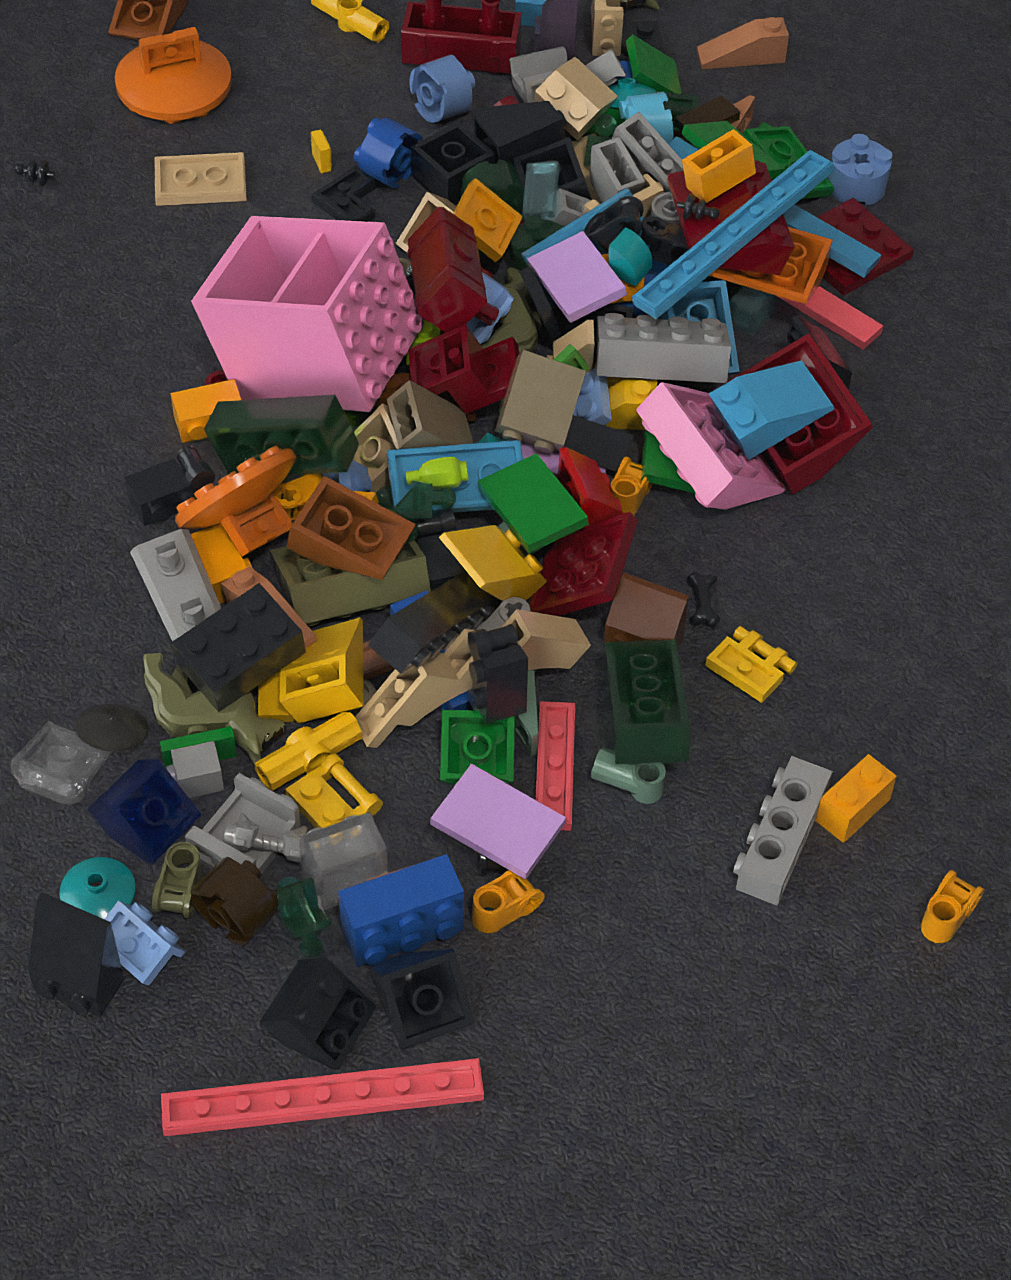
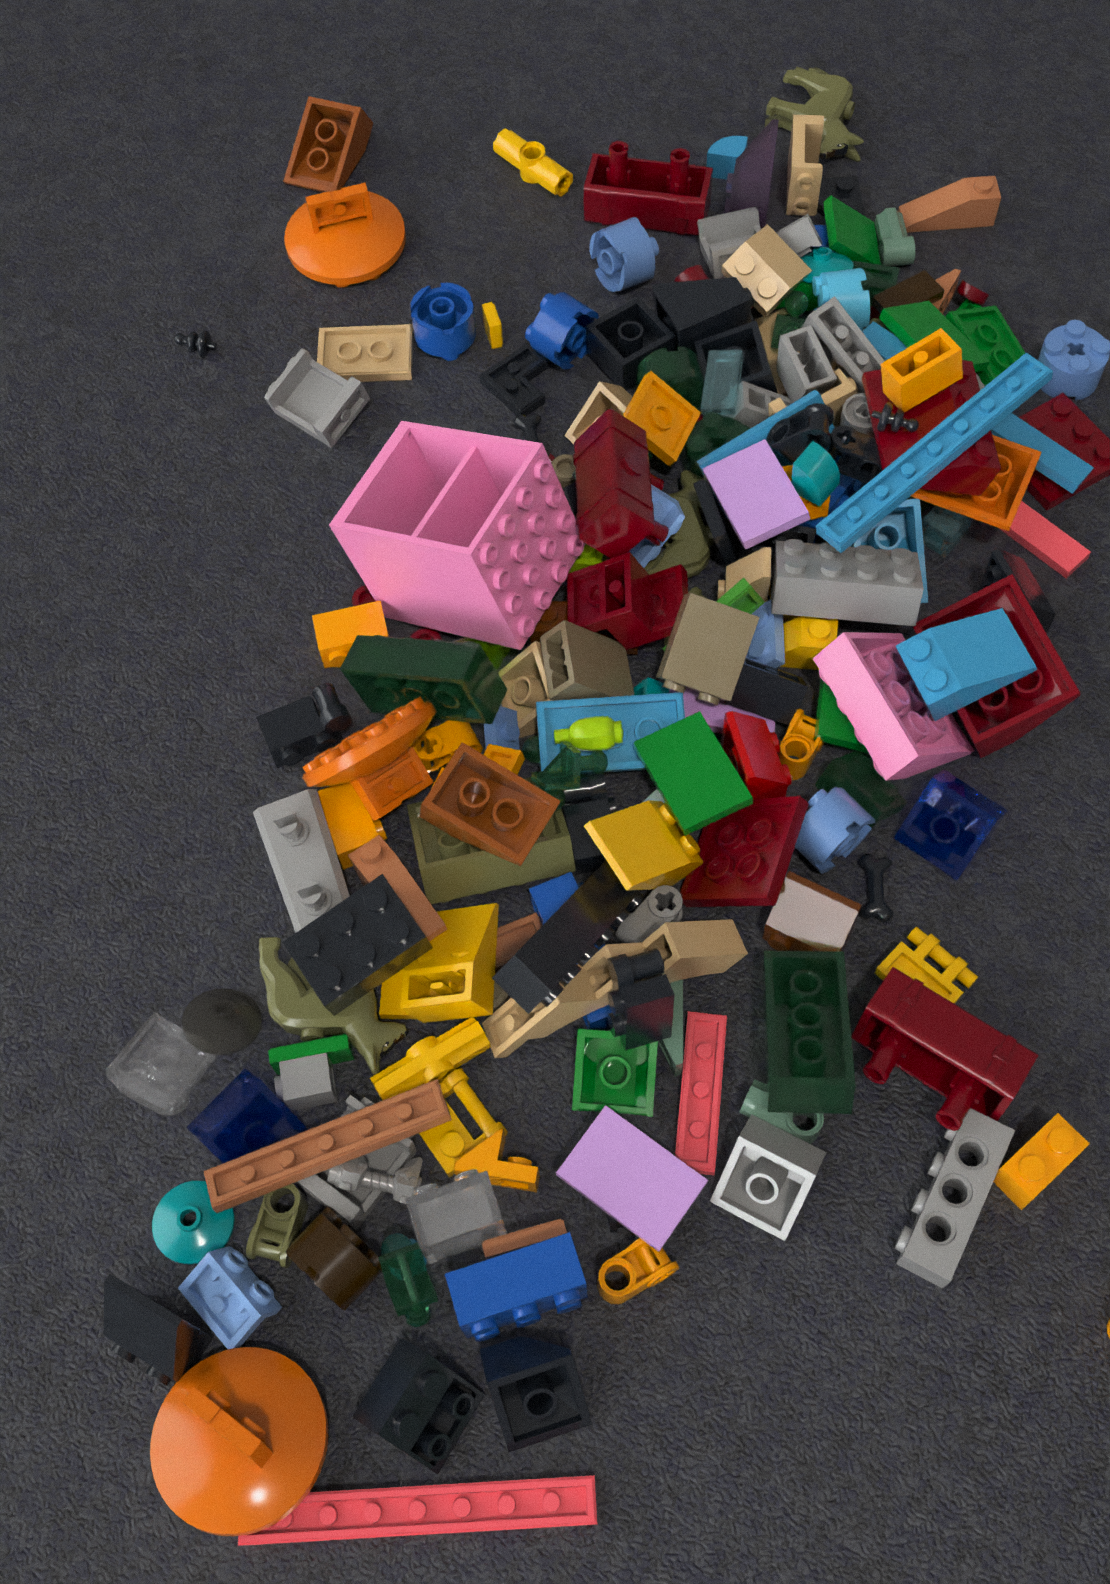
camera: 10 degrees right, 10 degrees up
(158, 216) = (316, 398): none -> light grey panel
(158, 1047) = (239, 1441): none -> orange bracket
(221, 810) = (326, 1146): none -> nougat tile
(275, 147) = (443, 320): none -> blue brick
(394, 830) = (487, 1156): none -> light orange slope
(618, 823) = (767, 1177): none -> light grey slope
(660, 546) = (832, 828): none -> medium blue brick
(684, 522) = (863, 783): none -> clear green bracket
(693, 76) = (894, 244): none -> sand green piece
(764, 710) = (942, 1049): none -> dark red piece
(766, 544) = (950, 823): none -> clear blue slope
(767, 116) = (972, 292): none -> dark red tile

